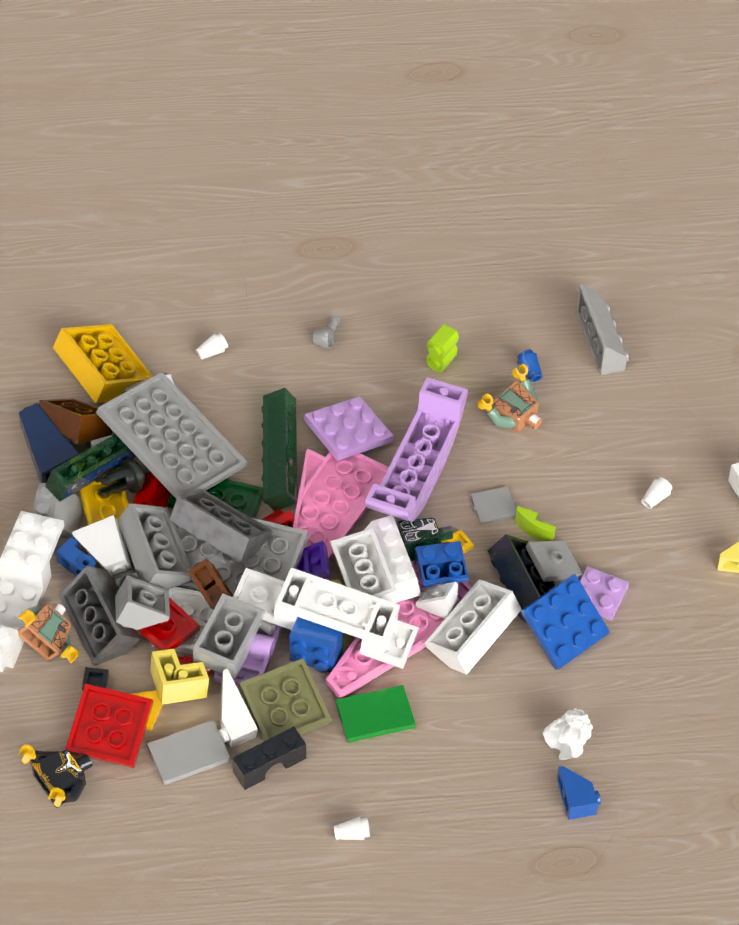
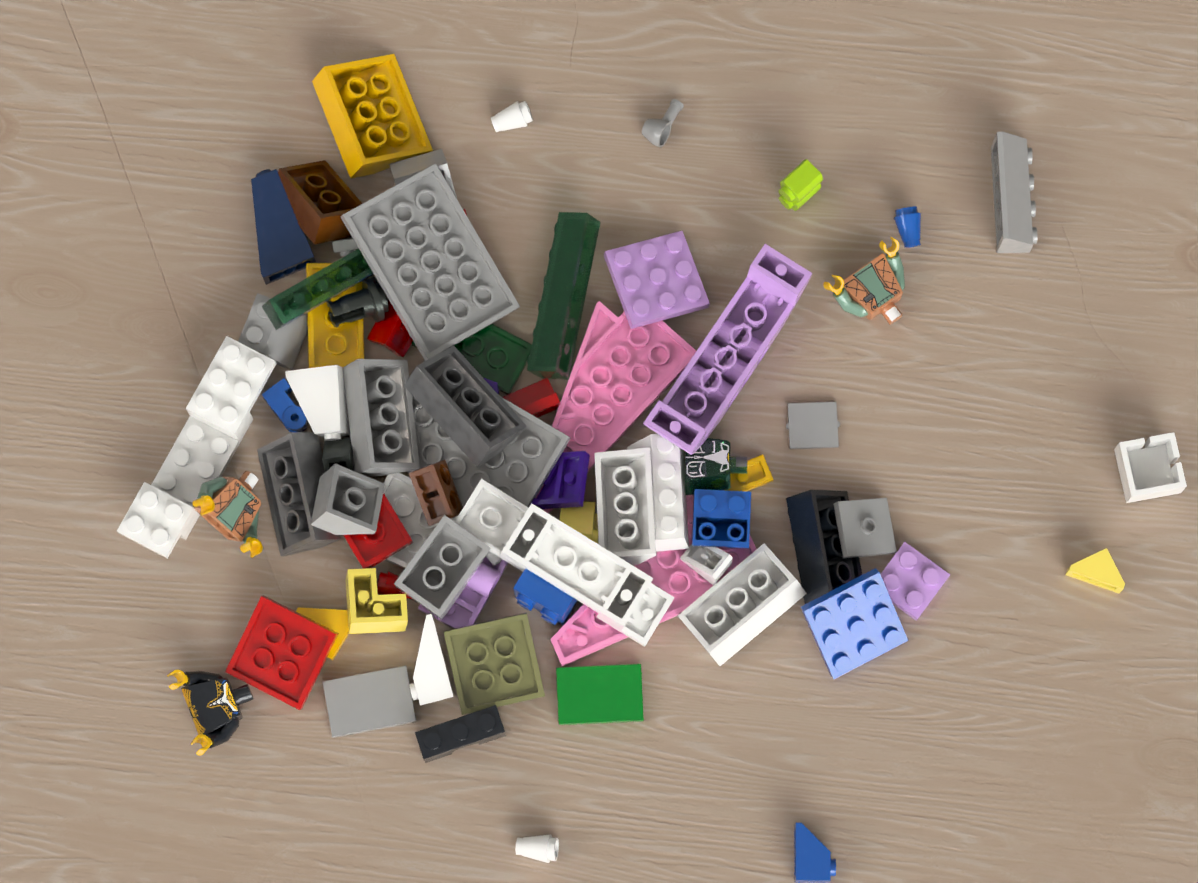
camera: 15 degrees right, 25 degrees up
(95, 677) = (278, 579): black tile -> none
(528, 522) = (848, 462): lime slope -> none
(569, 733) = (822, 776): white hair -> none
(656, 493) = (1018, 452): white cone -> none

